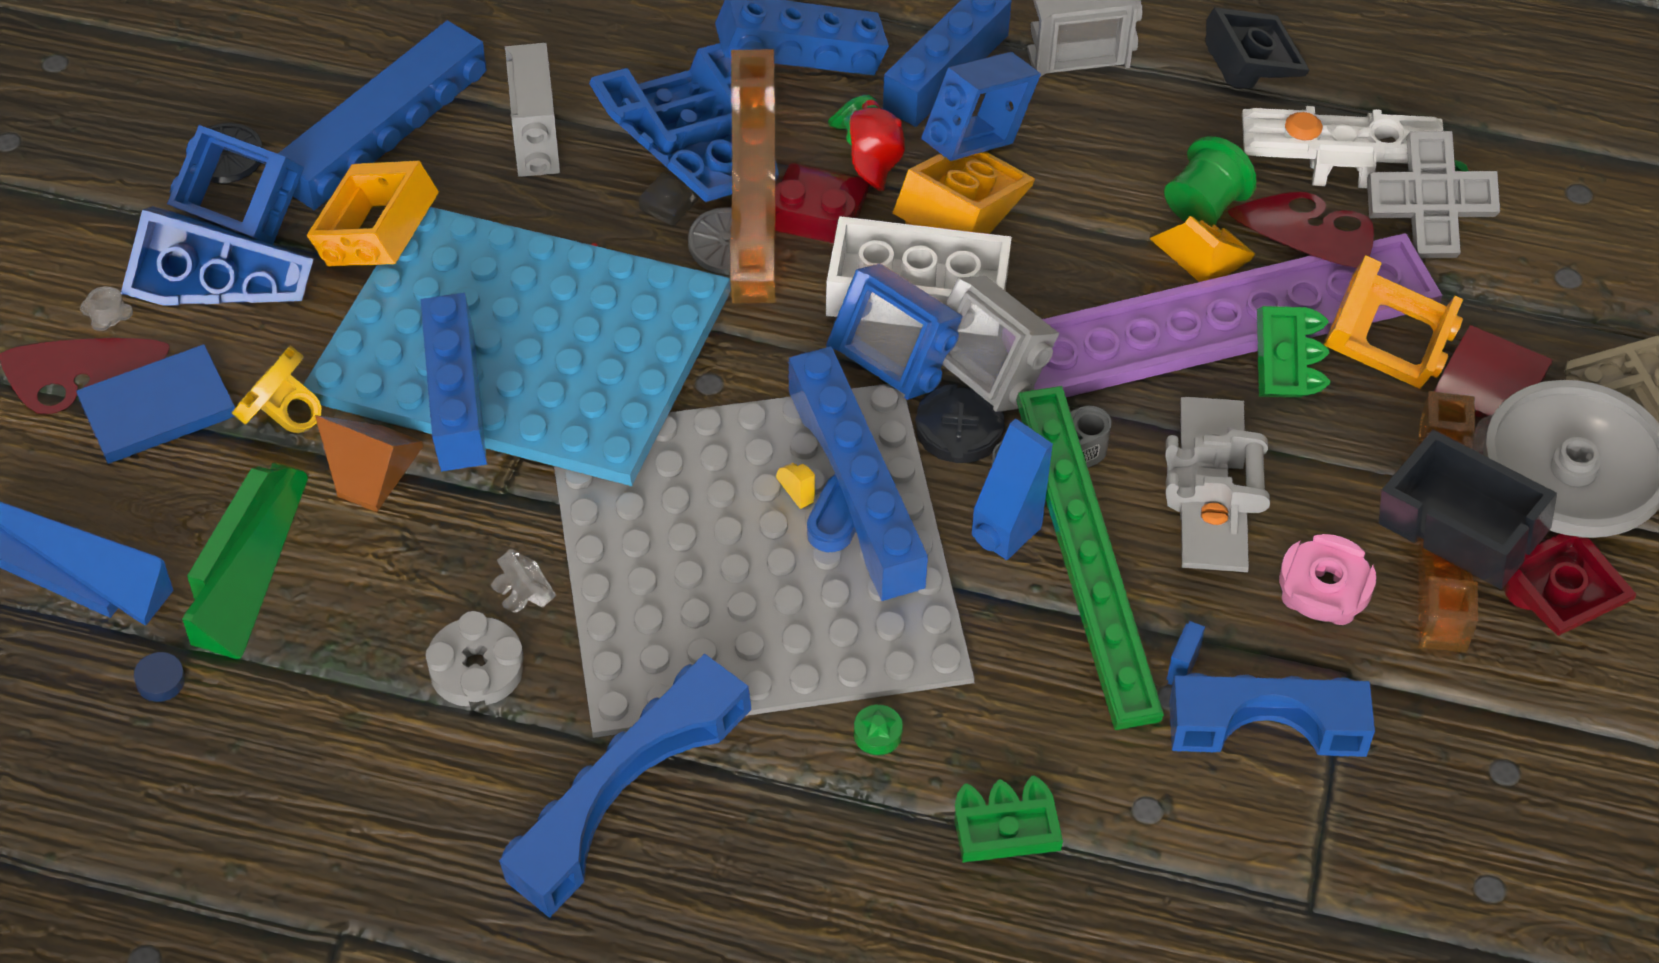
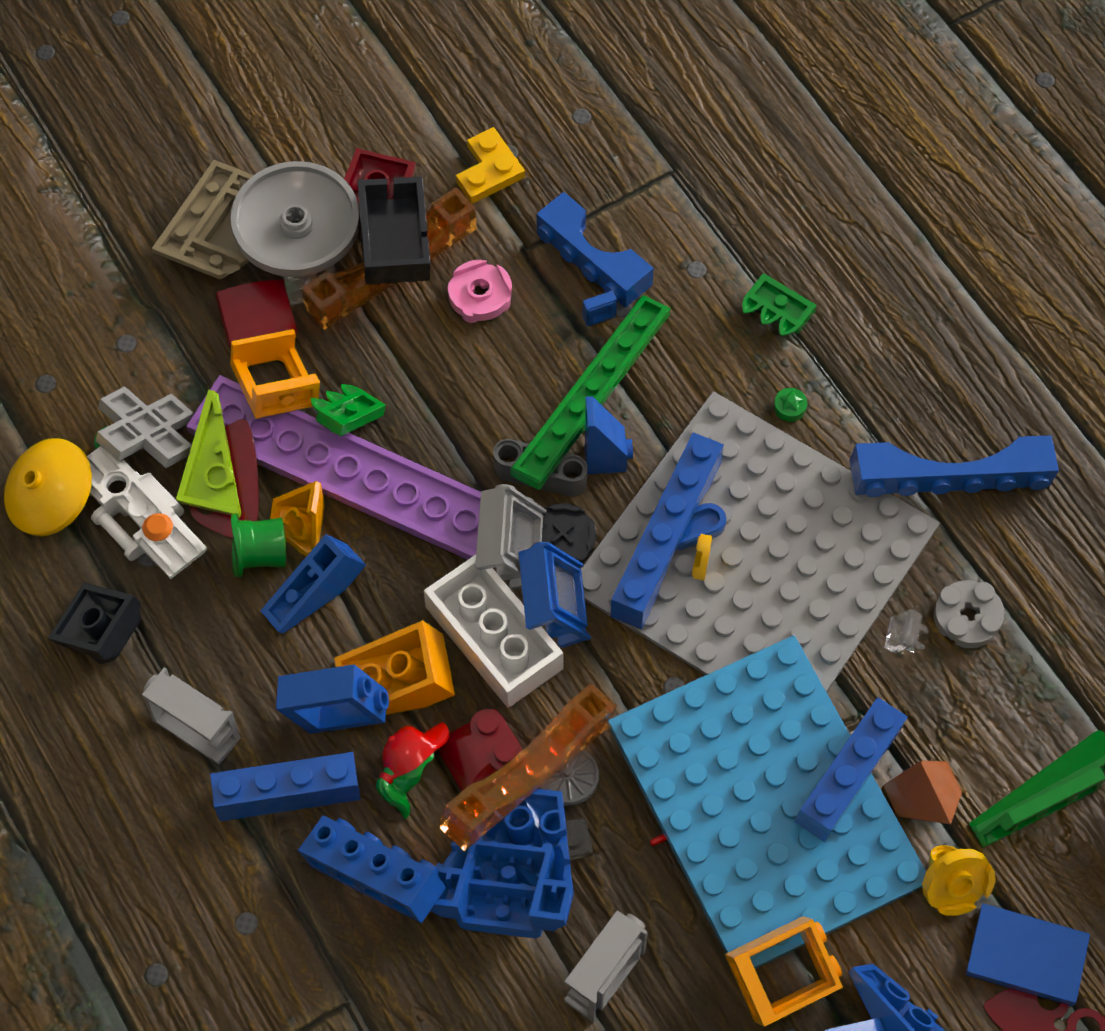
camera: 135 degrees left, 10 degrees up
(1122, 208) = (313, 583): none -> blue slope
(1199, 485) = (480, 389): light grey piece -> none
(1335, 207) = (209, 473): none -> lime wing
(1441, 95) = (47, 487): none -> yellow dish
(1493, 740) = (495, 170): none -> yellow plate

